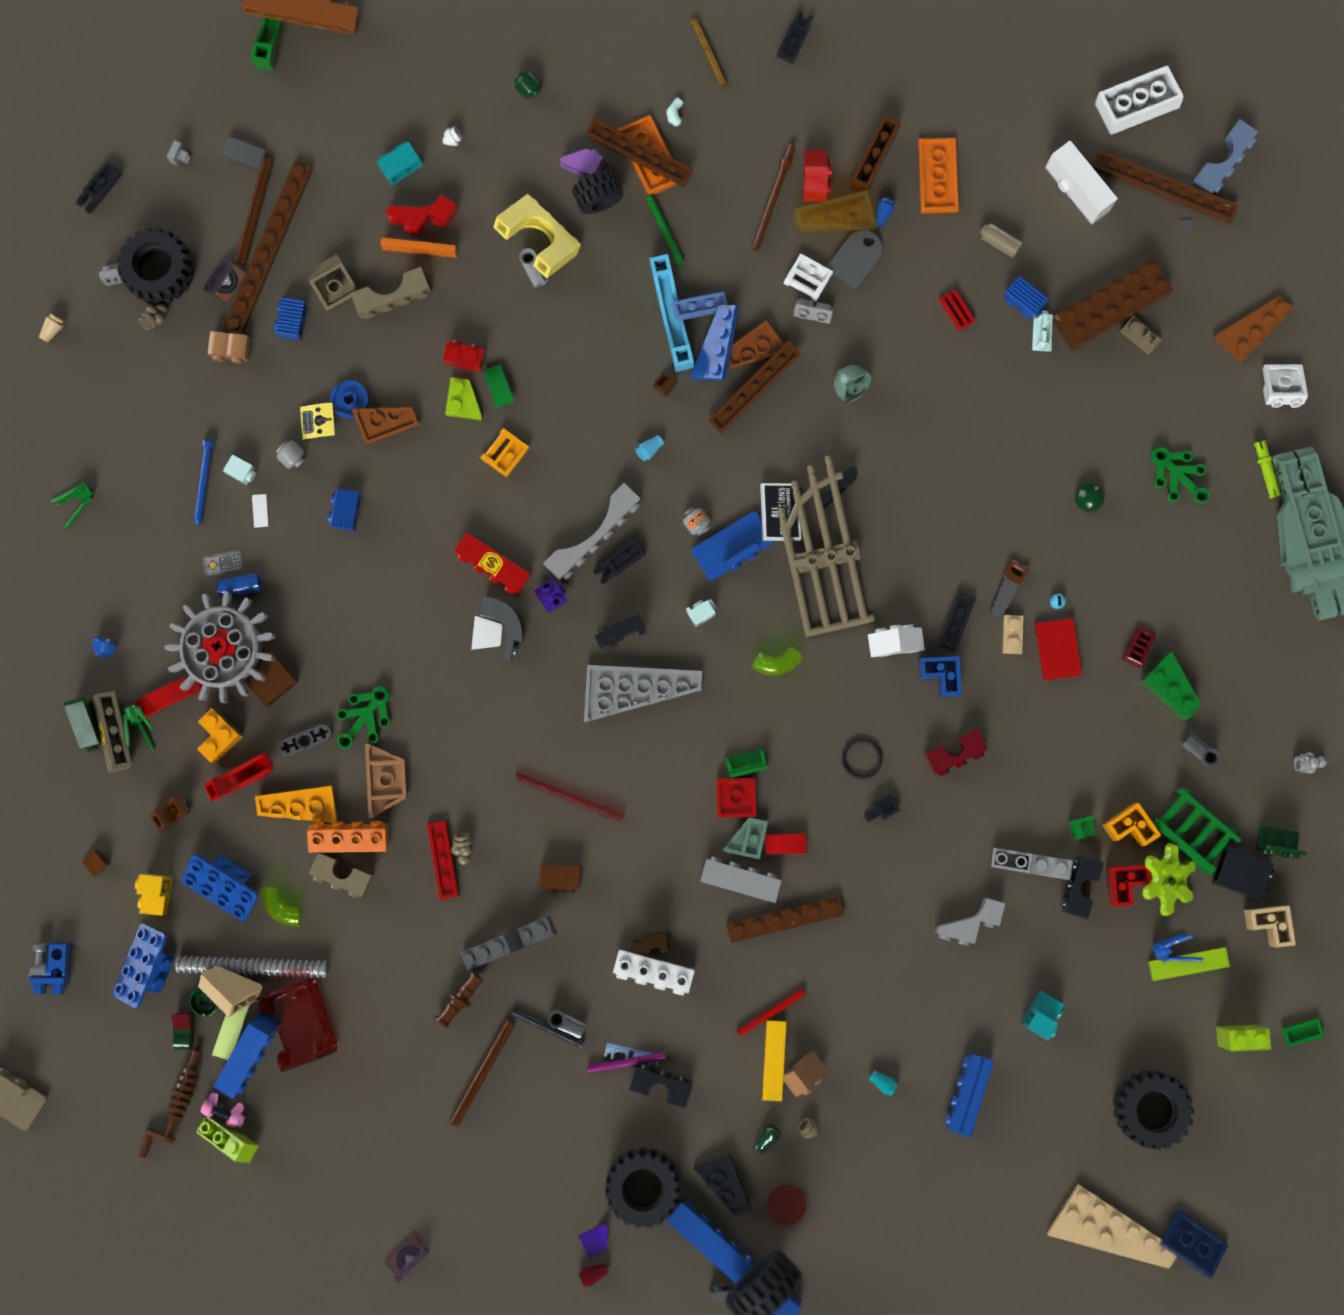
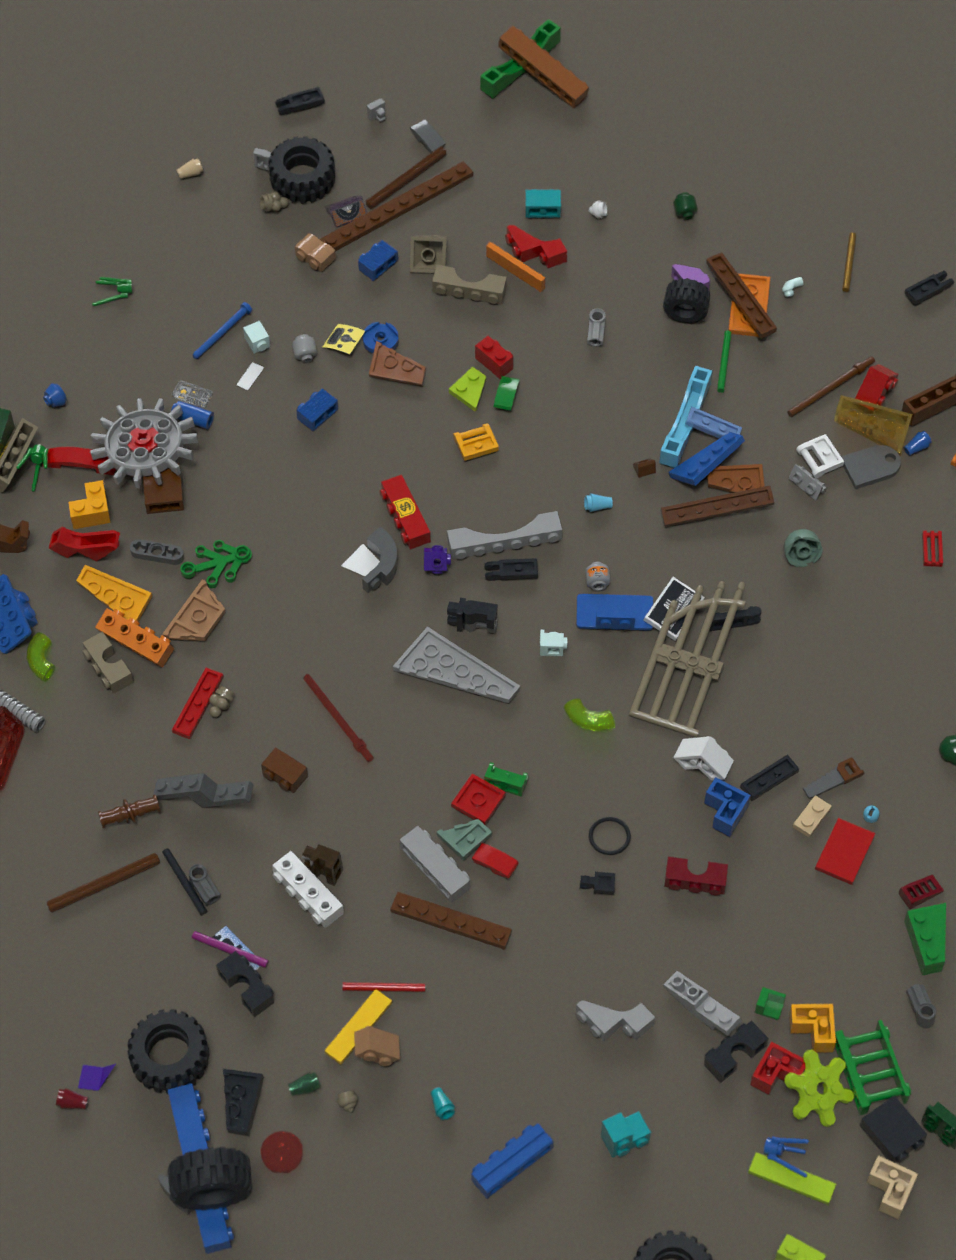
camera: 30 degrees right, 25 degrees down
(529, 213) = (619, 288): light yellow arch -> none

